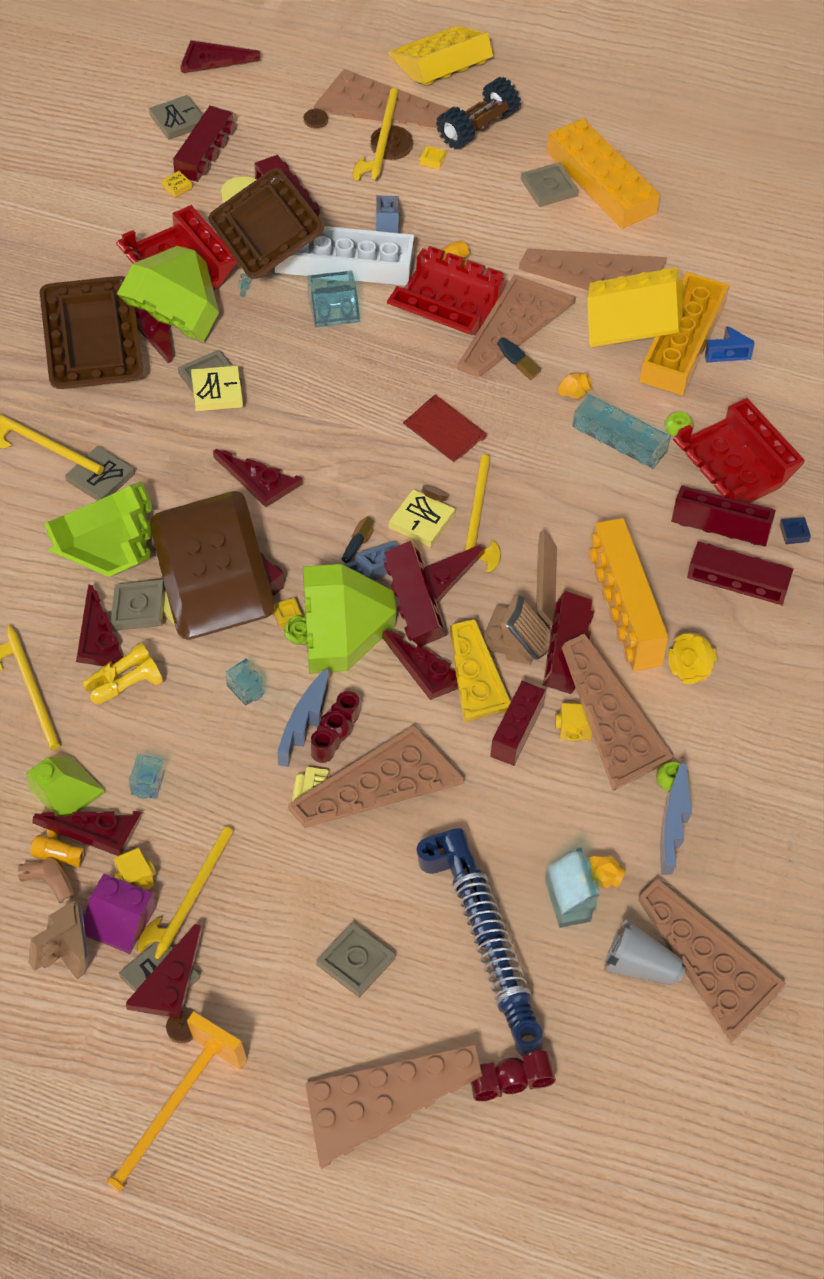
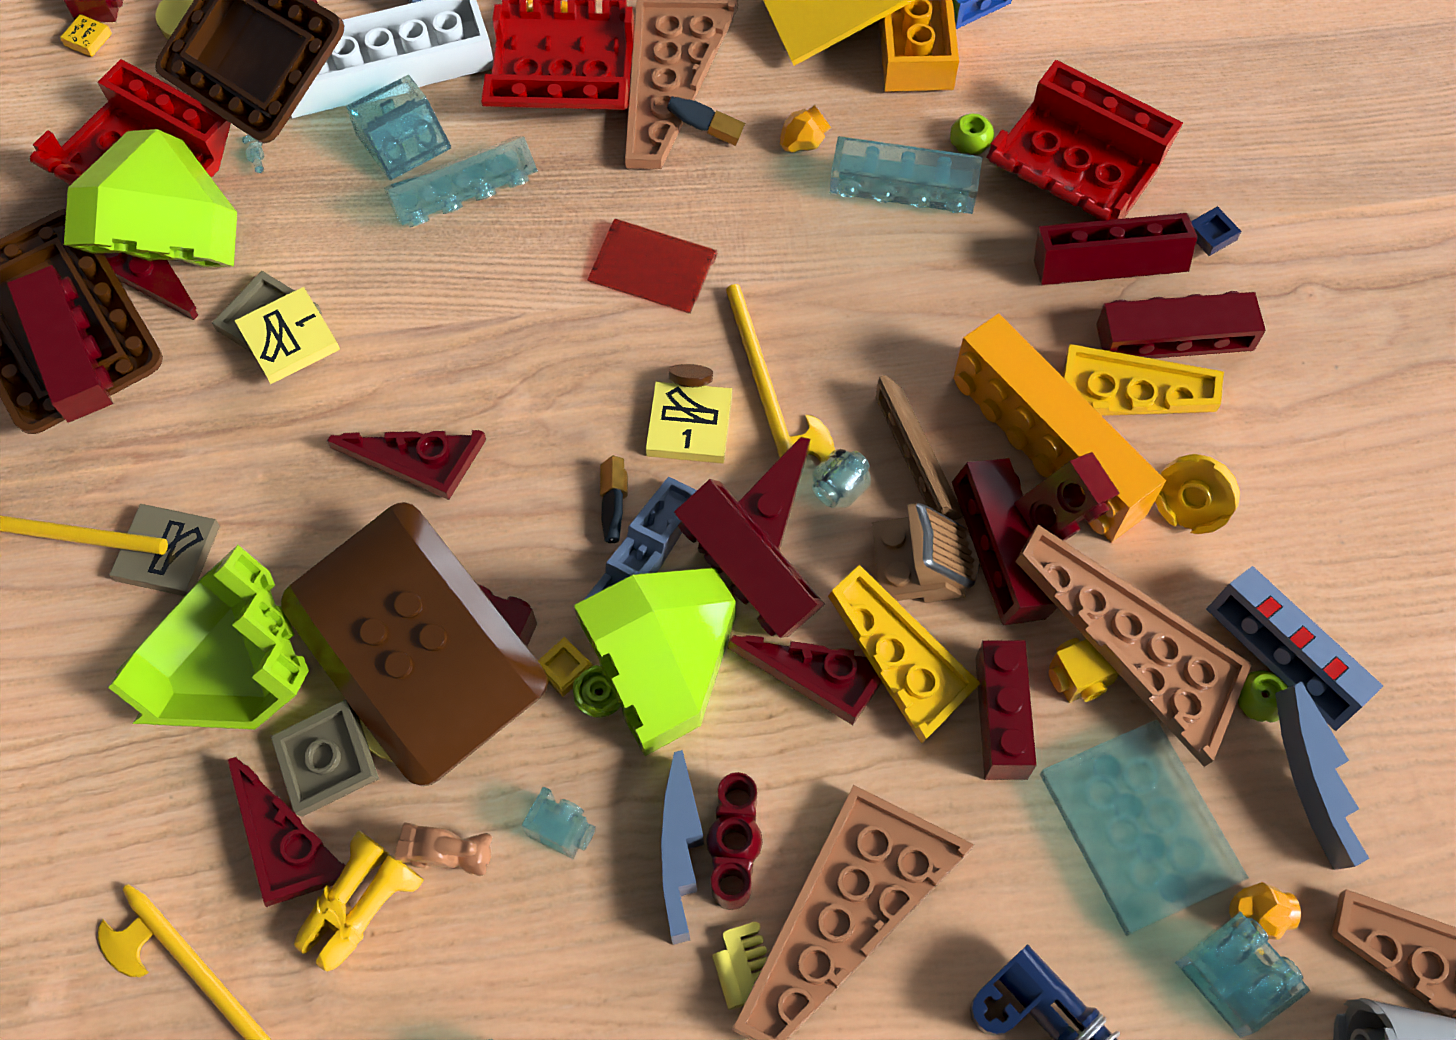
camera: 20 degrees left, 10 degrees up
(92, 345) = (61, 343): none -> dark red brick
(179, 668) = (443, 849): none -> nougat animal
(355, 340) = (460, 180): none -> clear light blue brick
(492, 577) = (841, 478): none -> clear light blue head
(563, 807) = (1142, 827): none -> clear light blue plate
(609, 625) = (1064, 495): none -> dark red brick
(690, 592) = (1140, 385): none -> yellow wing
(702, 754) = (1294, 646): none -> sand blue brick

